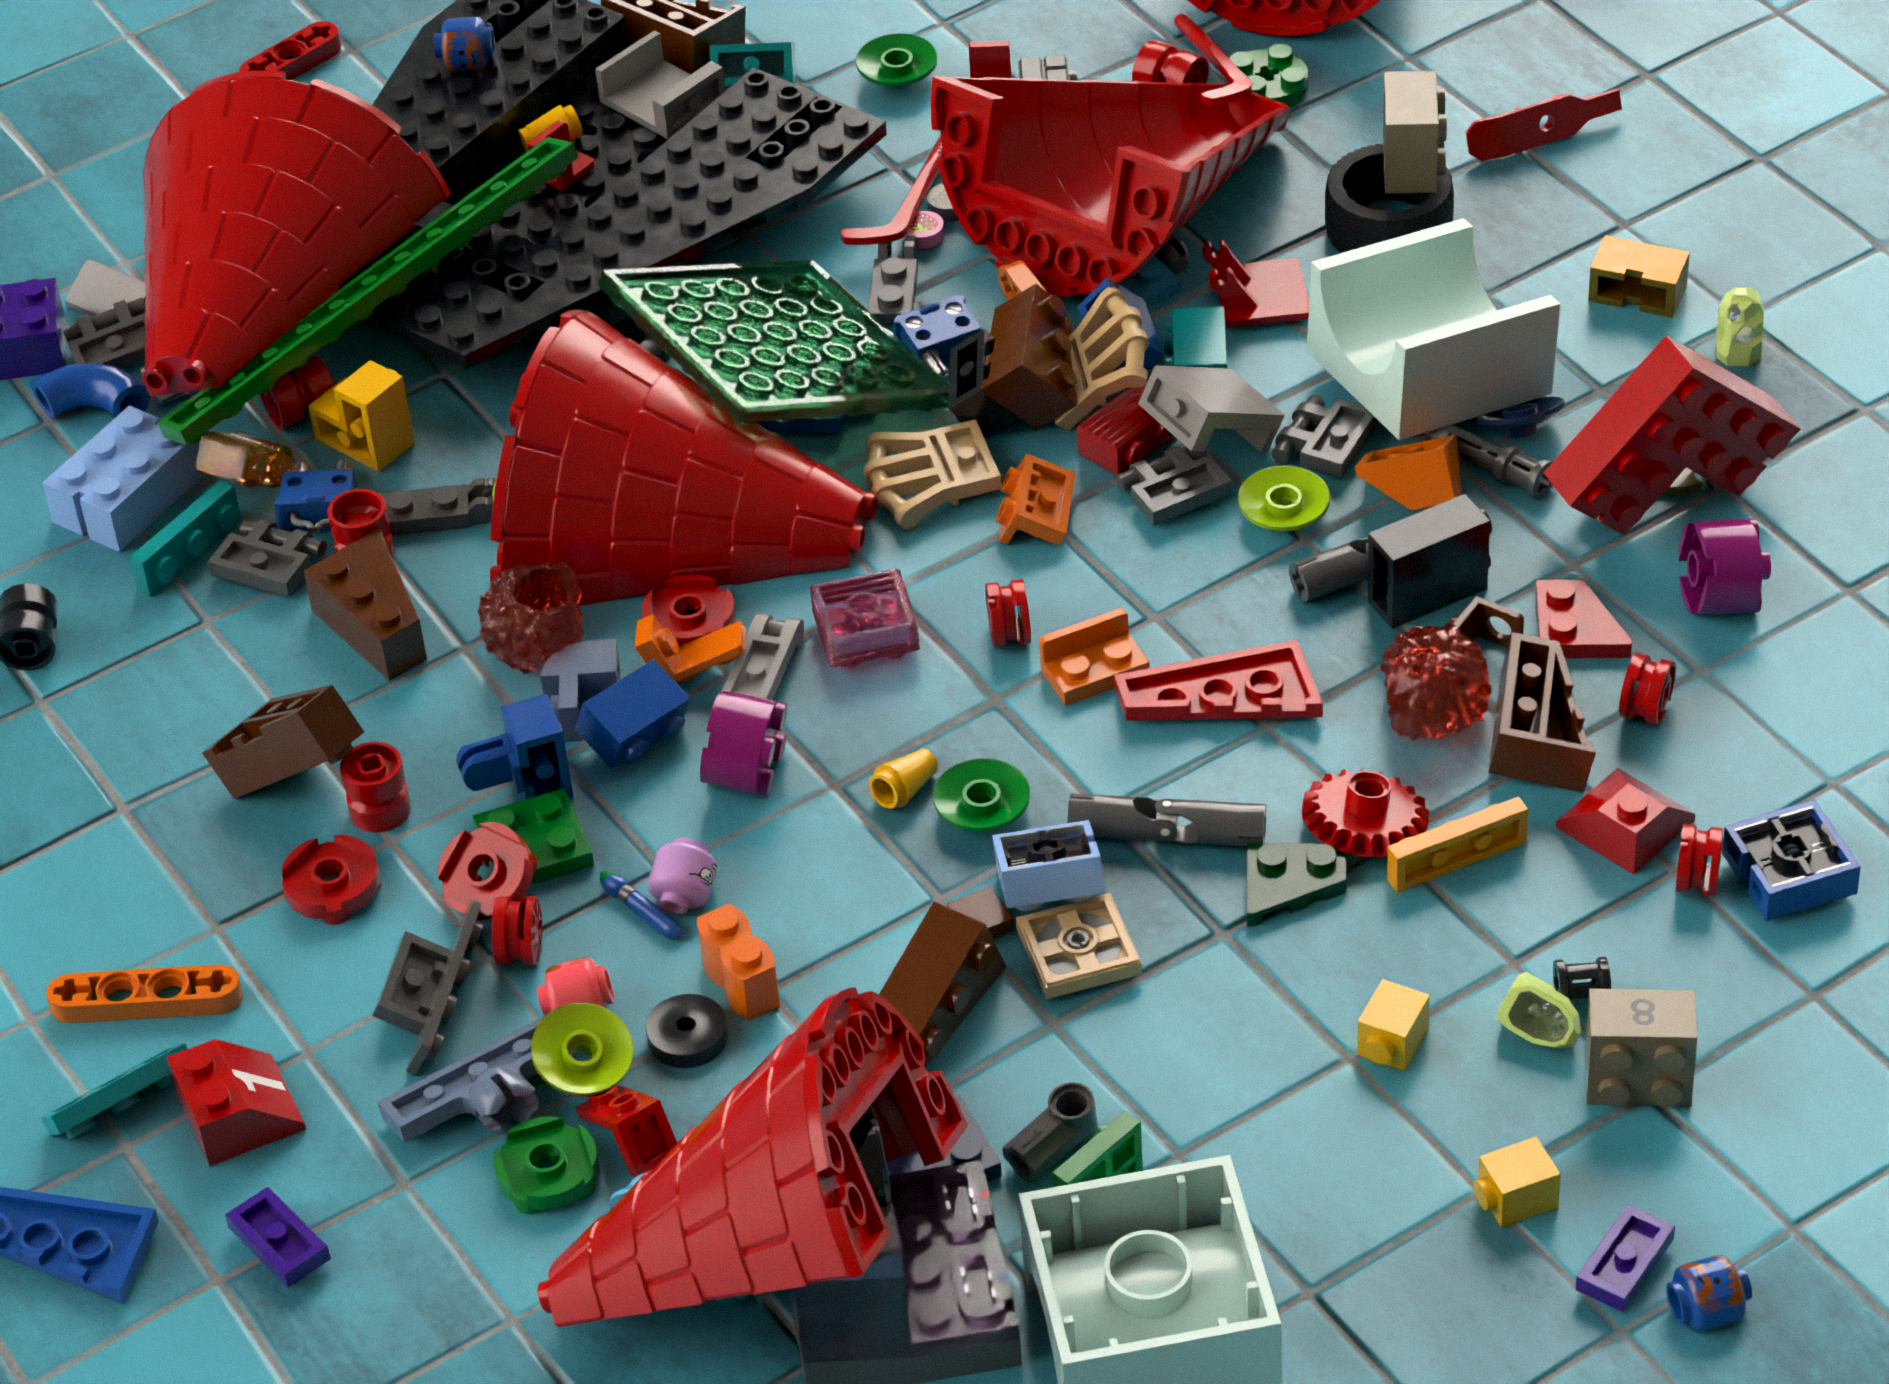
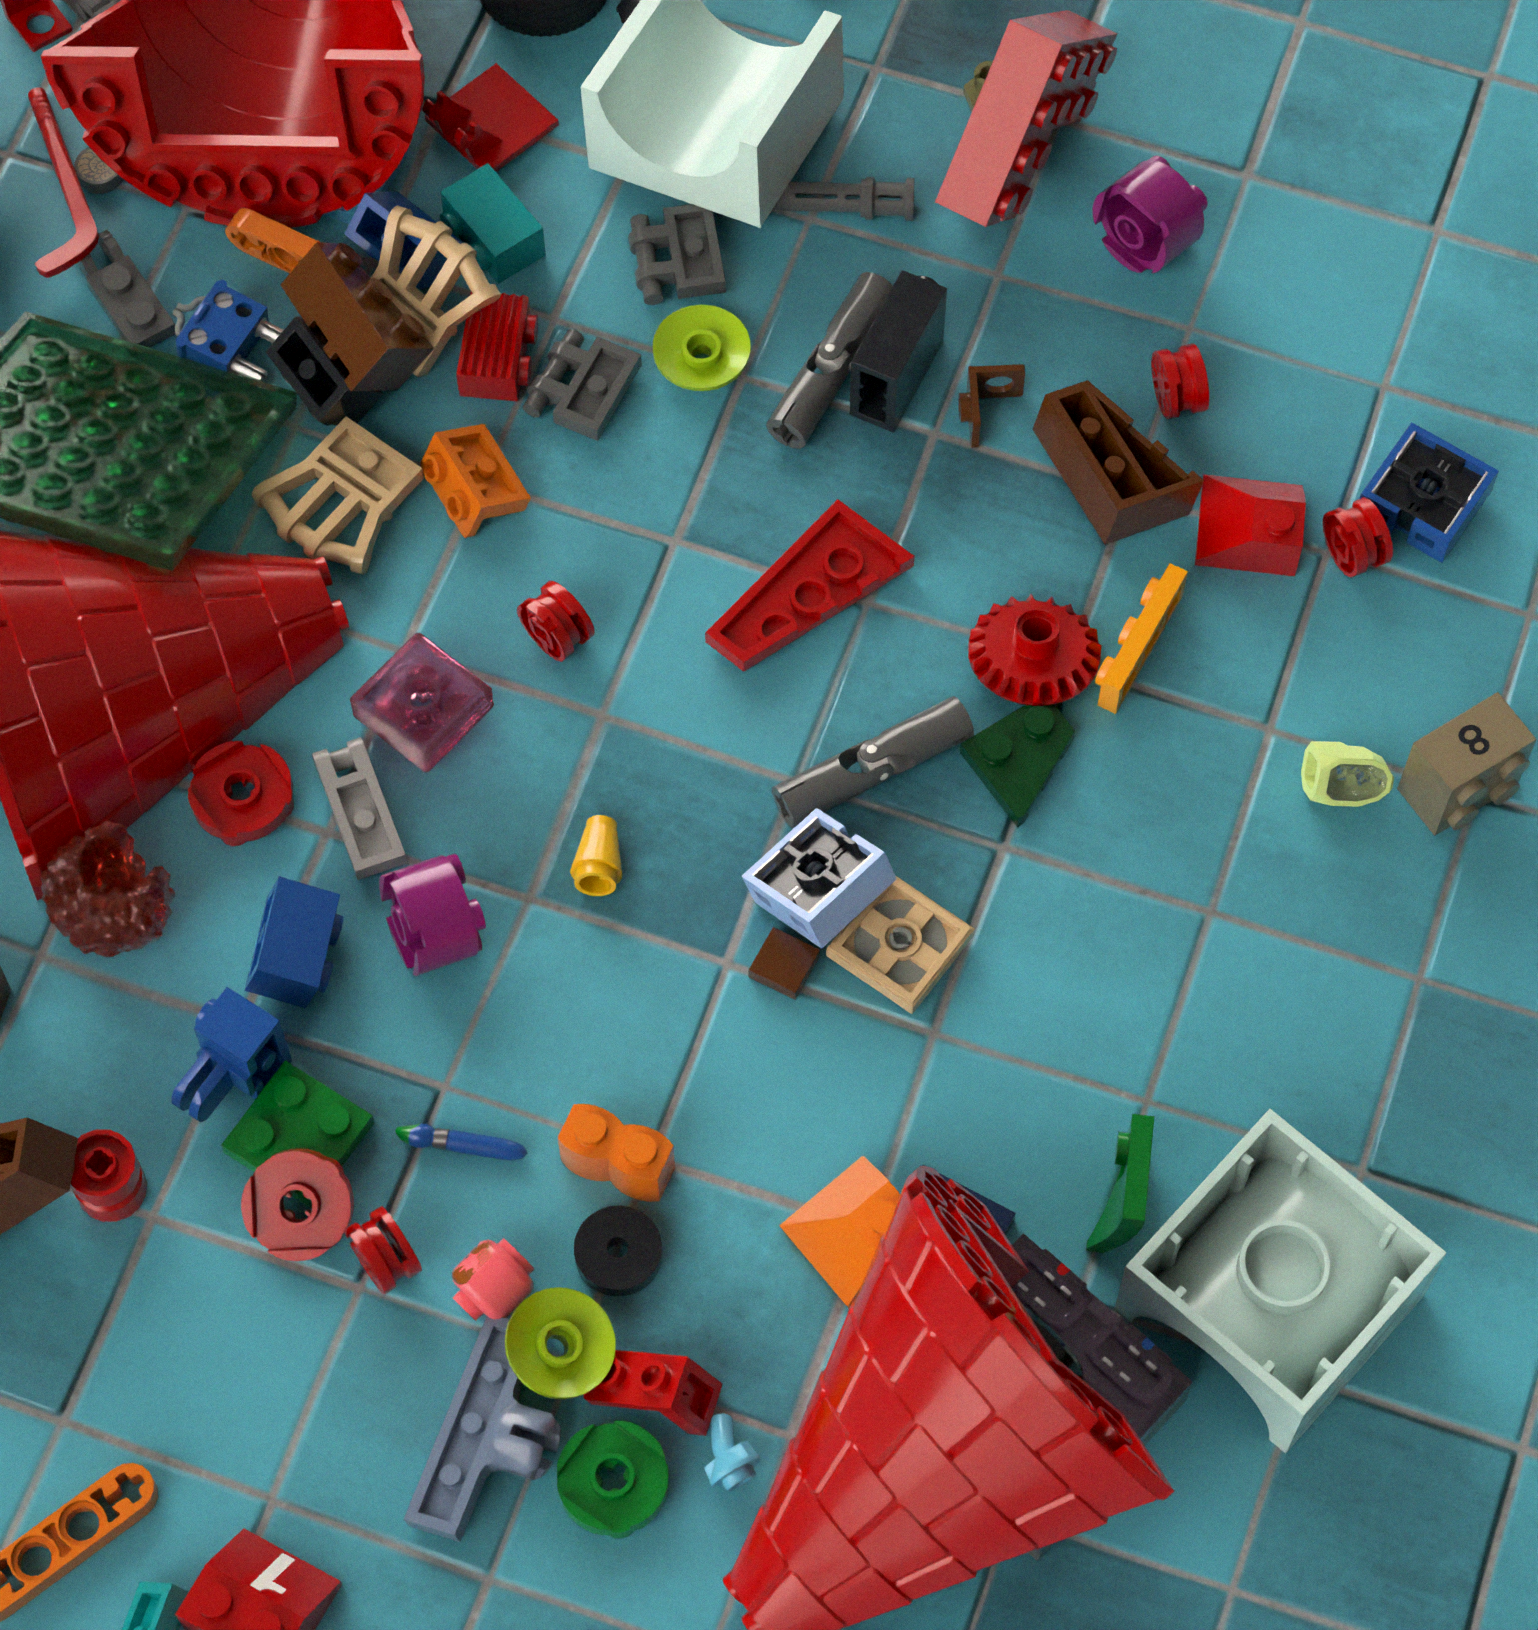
camera: 40 degrees left, 20 degrees up
(332, 899) = (156, 1326): red plate -> none
(420, 985) = (339, 1362): dark grey bracket -> none
(577, 676) = (199, 926): sand blue brick -> none
(682, 875) = (485, 1090): lavender head -> none
(688, 660) = (290, 838): orange bracket -> none
(927, 228) = (107, 211): bright pink tile -> none
(943, 975) = (824, 1075): reddish brown wedge -> none
(981, 795) = (683, 814): green dish -> none
(1059, 1129) = (1040, 1157): dark grey piece -> none
(1088, 654) = (663, 623): orange bracket -> none
(1199, 399) = (568, 287): light grey panel -> none
(1393, 1025) = (1235, 861): yellow brick -> none
(1415, 472) = (797, 253): orange slope -> none
(1434, 682) = (1007, 478): clear red hair -> none
(1517, 1182) = (1456, 956): yellow brick -> none
(1523, 417) = (845, 135): dark blue dish -> none
(1565, 973) = (1350, 716): black bush -> none
(1579, 621) = (1051, 338): wing -> none

